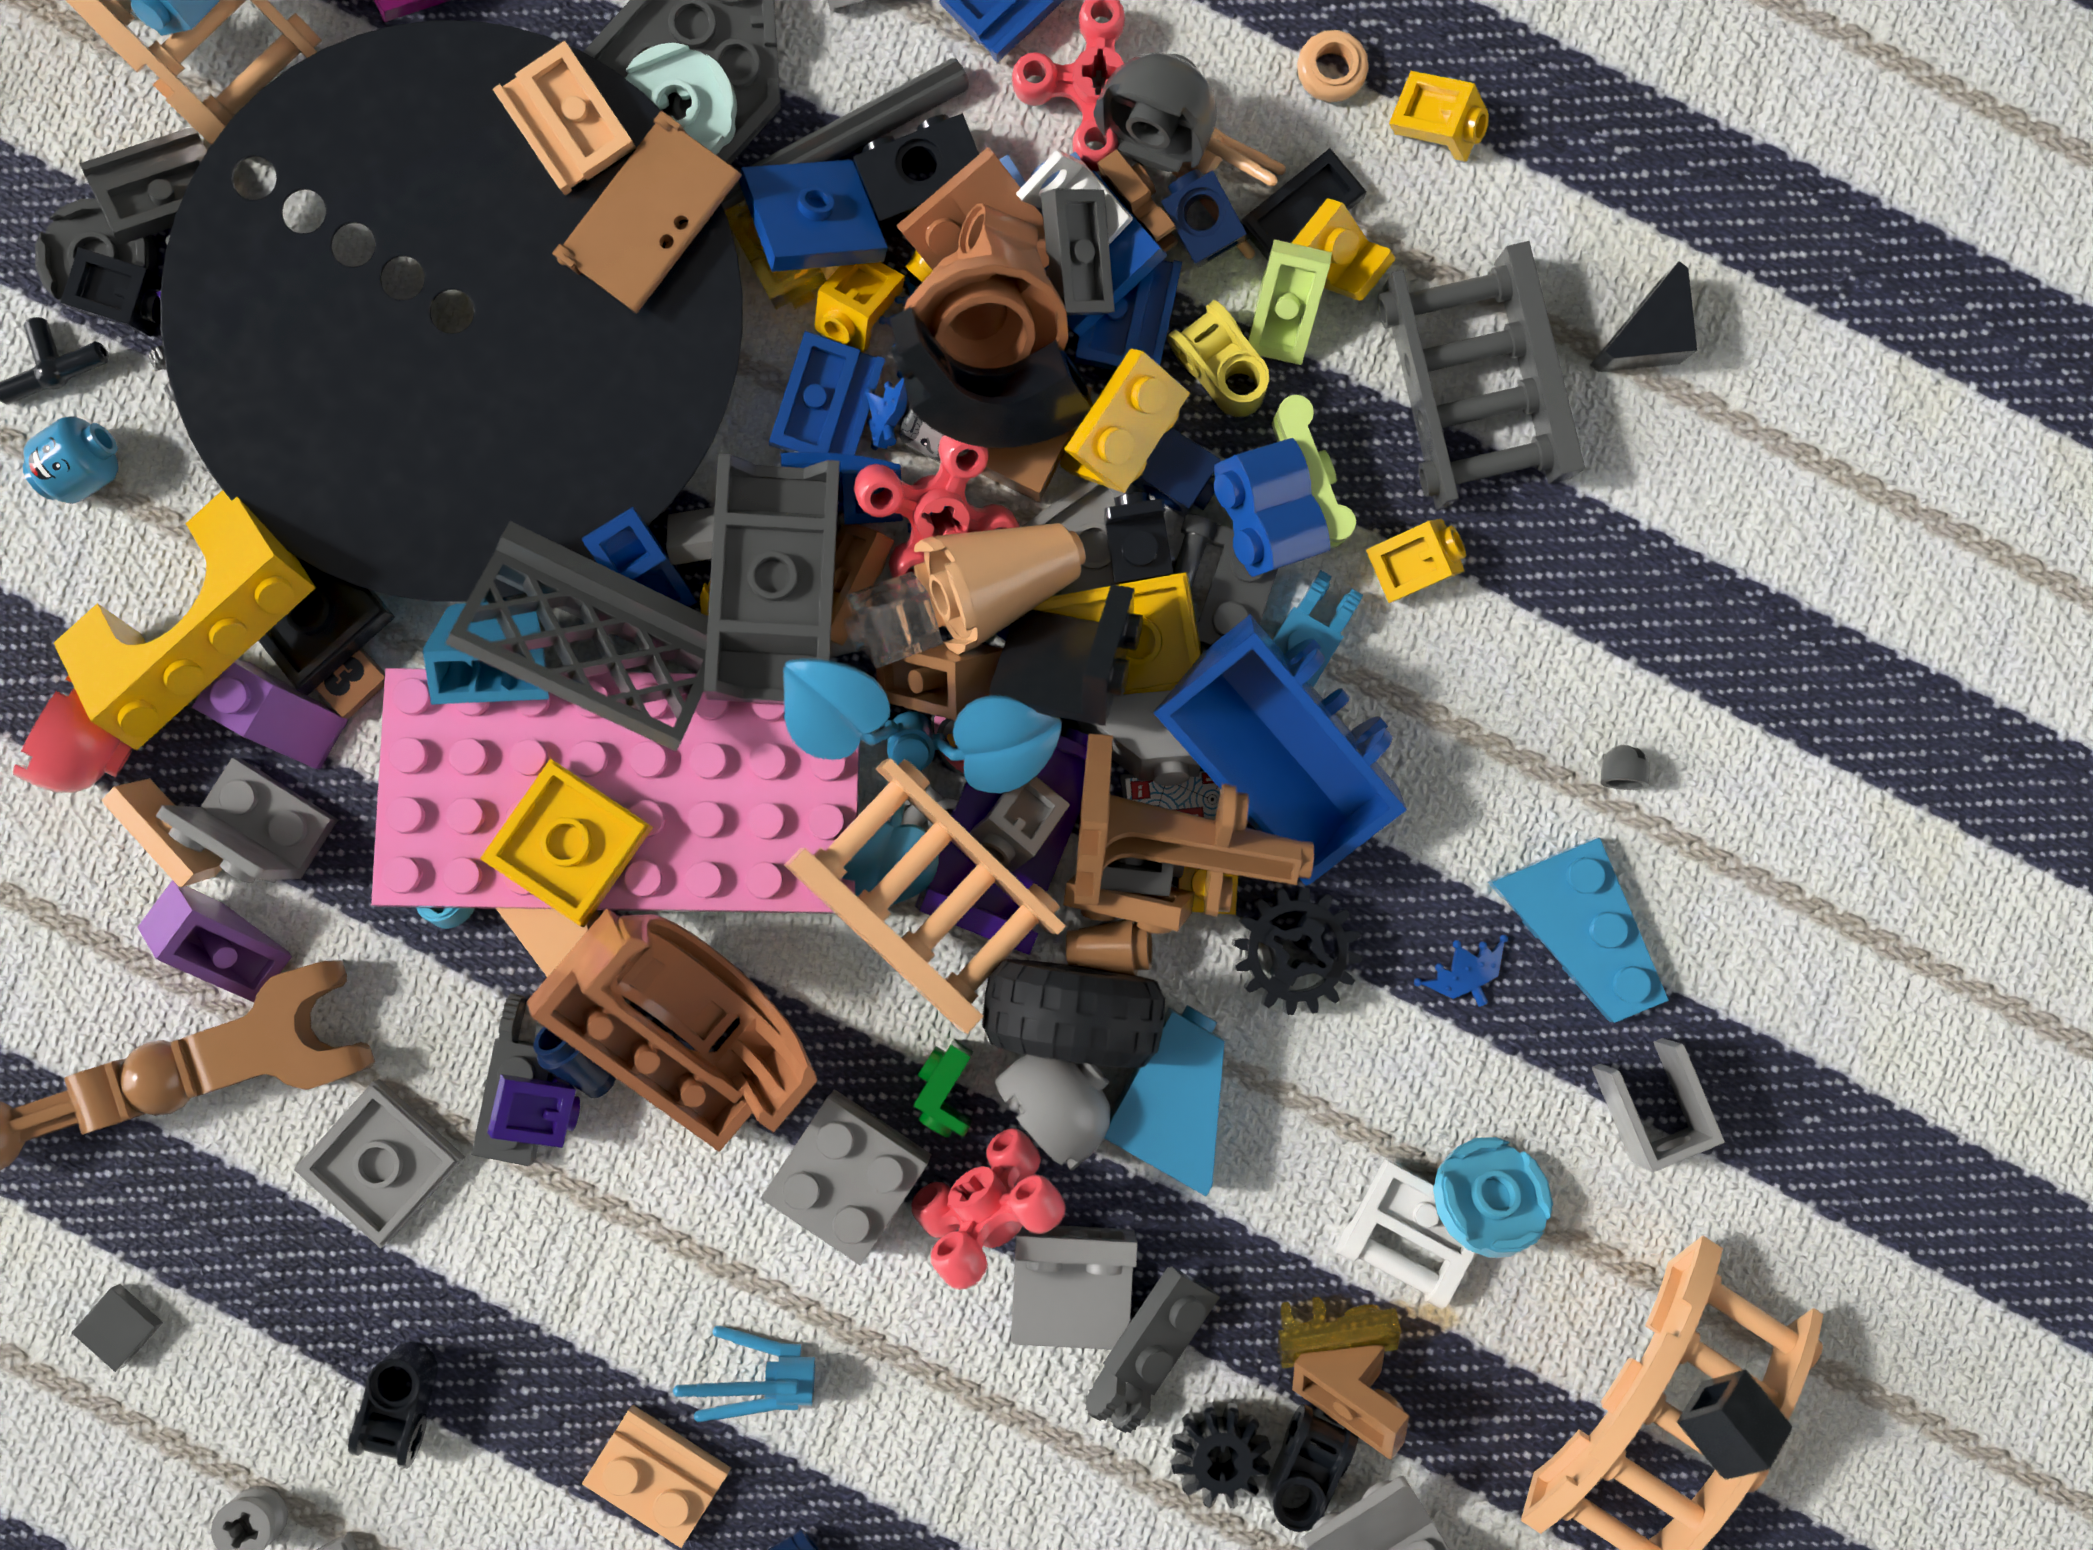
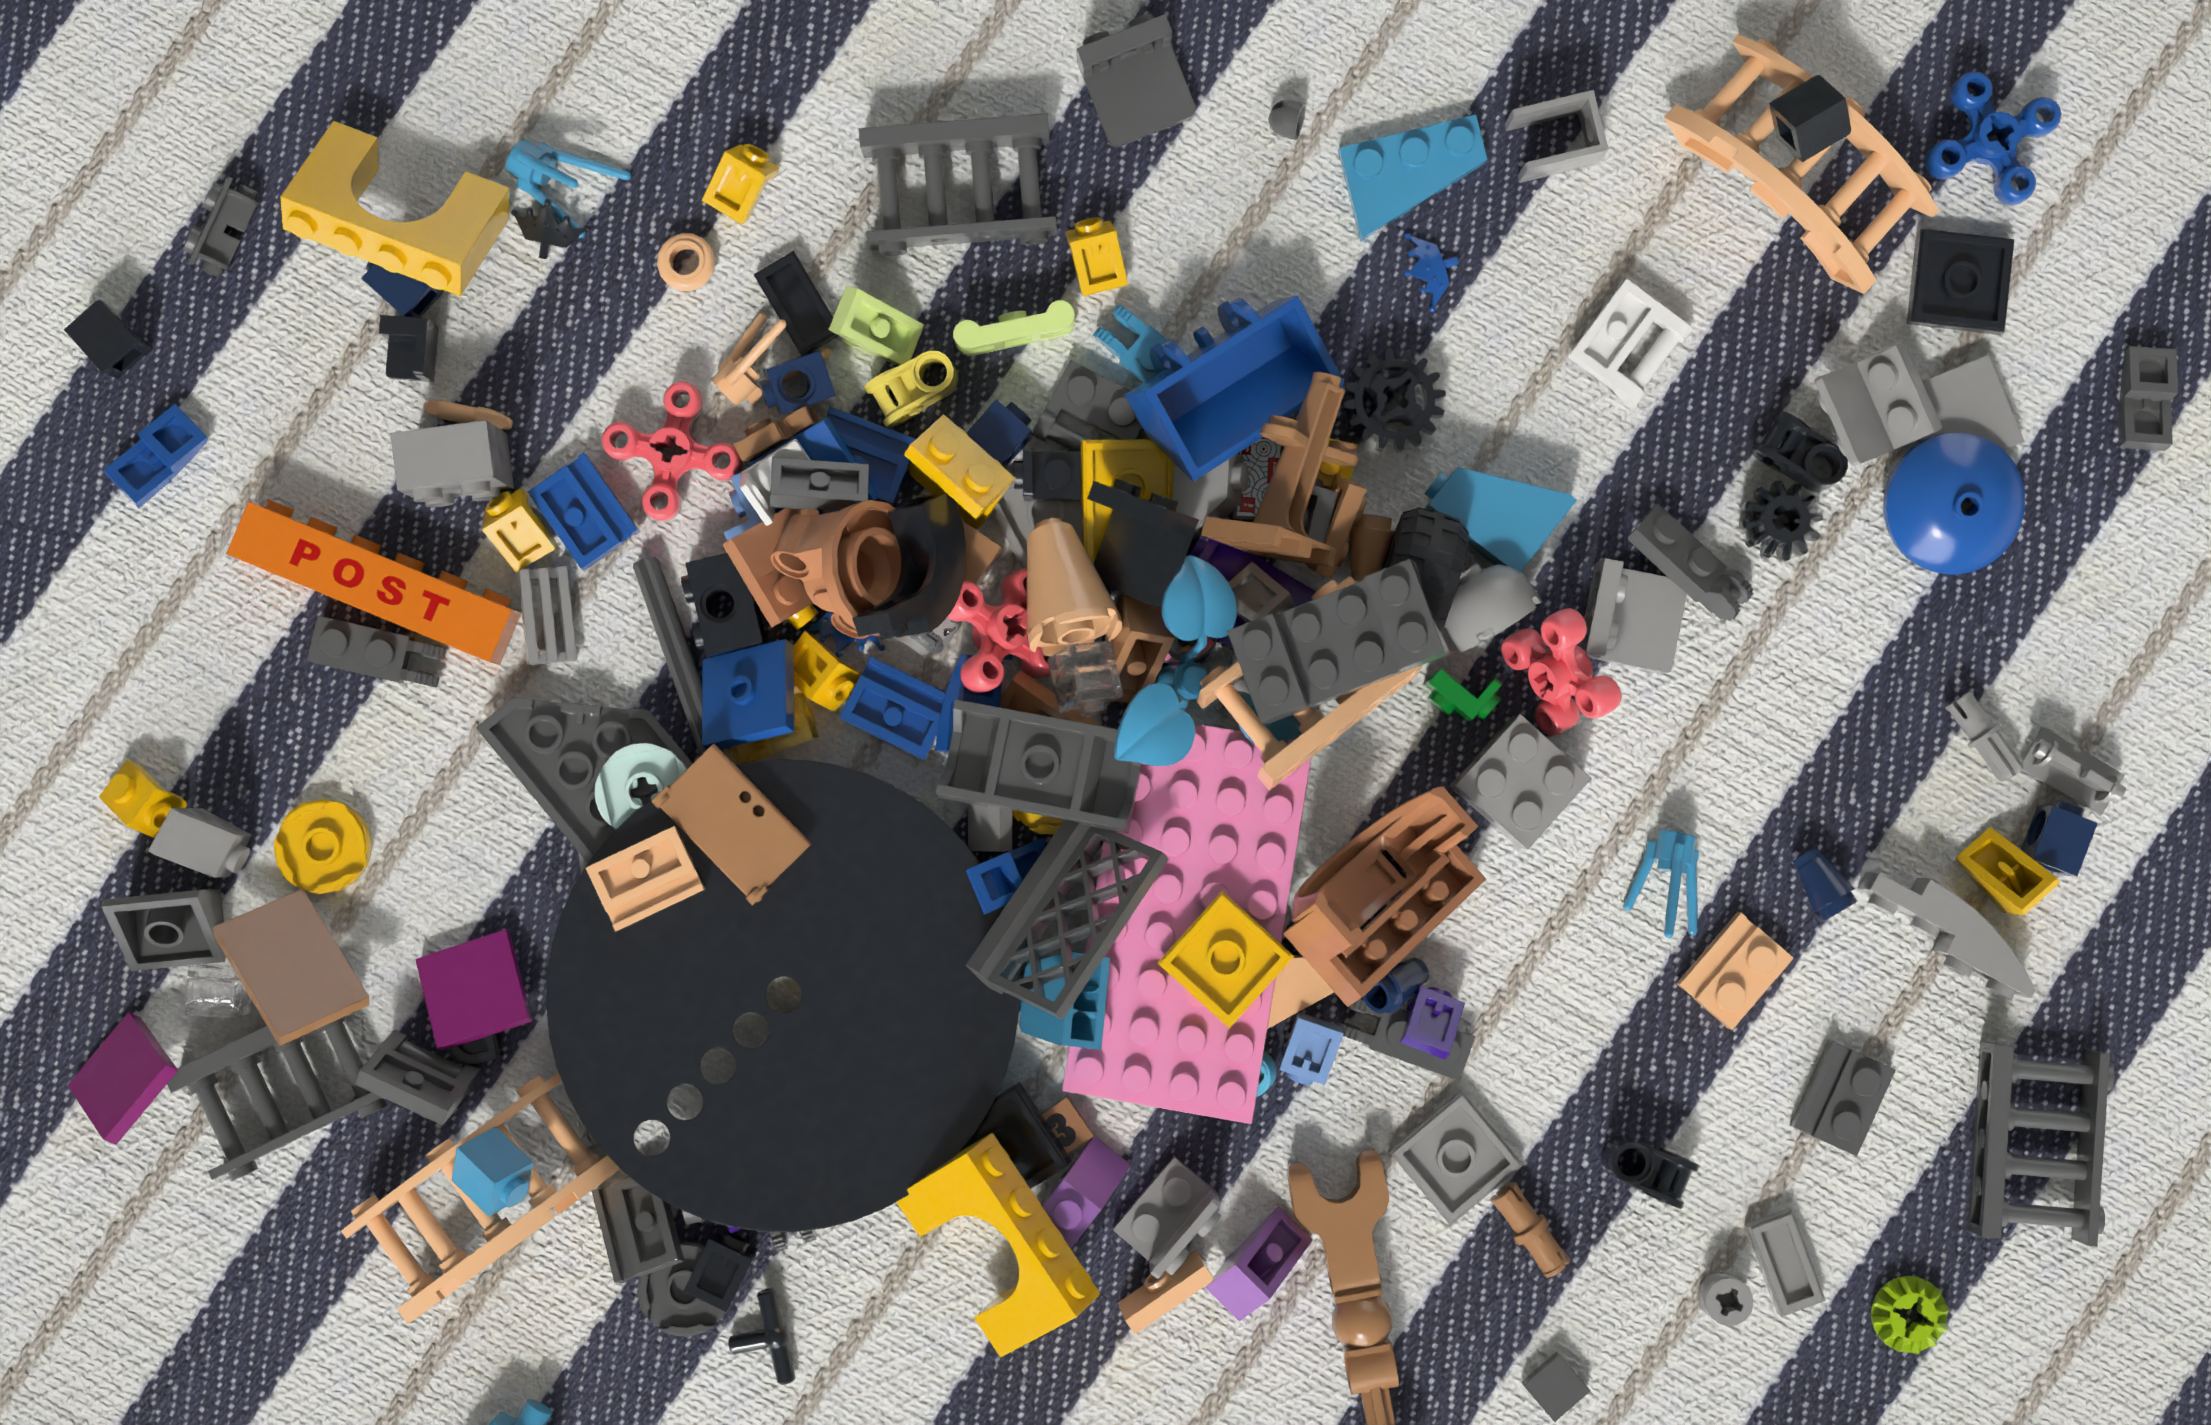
camera: 80 degrees left, 0 degrees up
(69, 749) = (1084, 1352): coral cylinder -> none
(70, 460) = (852, 1326): dark azure head -> none
(301, 1269) = (1530, 1229): none -> medium nougat pin
(478, 965) = (1310, 1050): none -> medium blue bracket
(886, 413) = (917, 660): blue piece -> none
(972, 920) = (1338, 643): none -> dark grey piece
(1158, 110) = (712, 403): dark grey cylinder -> none
(1271, 507) = (1041, 365): blue brick -> none
(1340, 1387) = (1741, 417): medium nougat slope -> none
(1354, 260) = (848, 267): yellow bracket -> none
(1358, 1328) = (1702, 401): clear yellow plate -> none
(1492, 1197) = (1610, 276): medium azure tile -> none
(1644, 573) = (1135, 80): none -> dark grey bracket
(1658, 329) = (940, 38): black slope -> none

